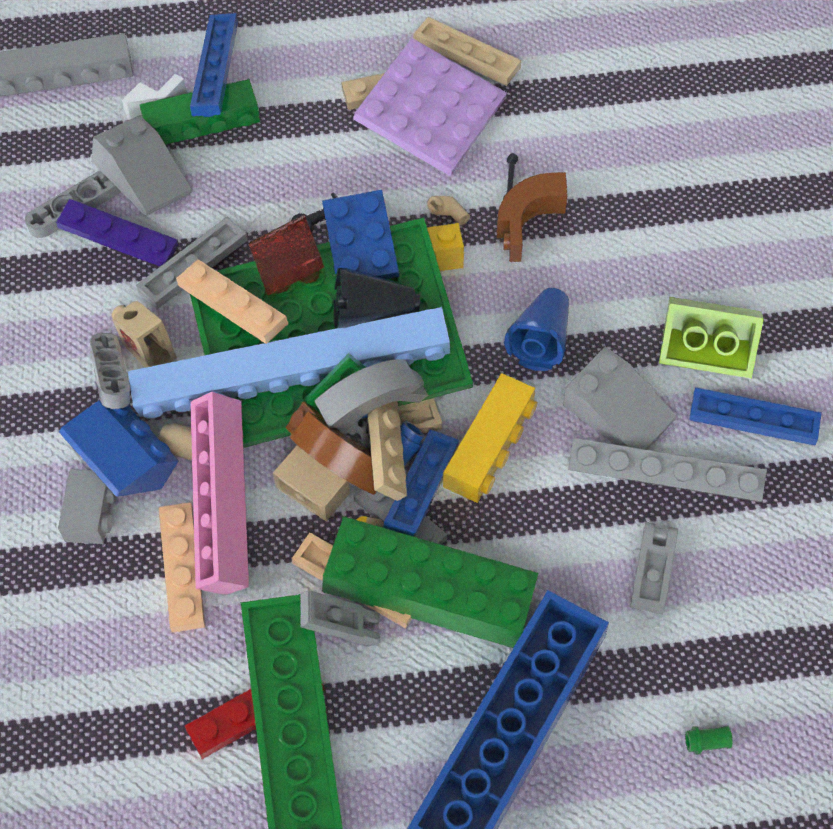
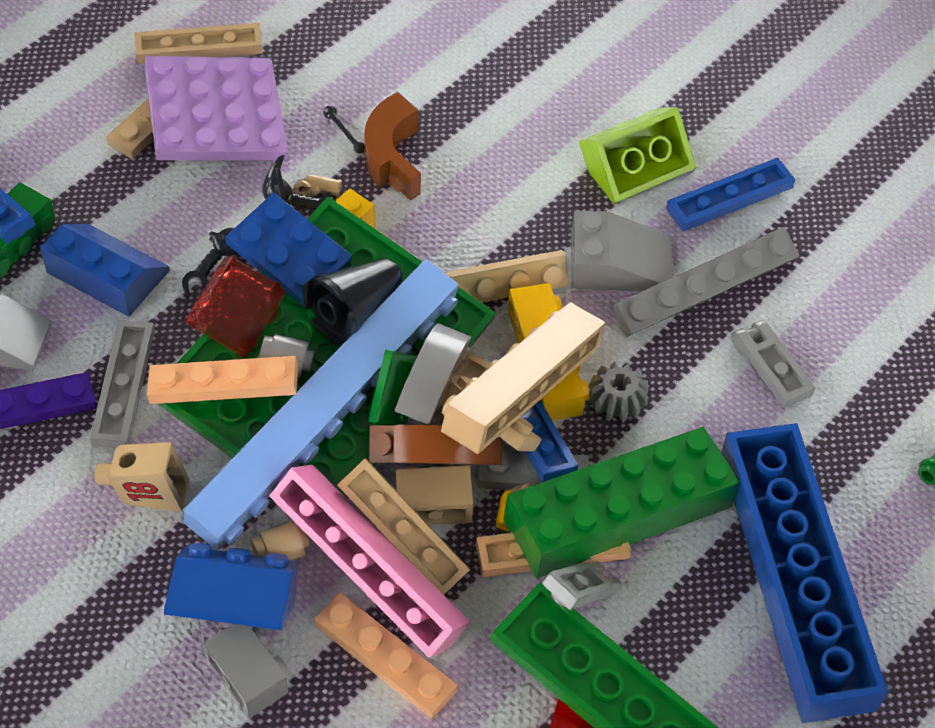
camera: 45 degrees left, 5 degrees down
(110, 370) = (152, 527): light grey beam -> none
(256, 171) = (102, 266): none -> blue slope
(262, 488) = (403, 526): none -> tan plate
(295, 311) = (285, 346): none -> light grey brick
(413, 196) = (276, 184): none -> black piece
(426, 439) = (521, 377): none -> brick
(502, 358) = (496, 279): none -> tan plate
(513, 504) = (618, 391): none -> light grey gear
(540, 331) = (504, 230): blue cone -> none

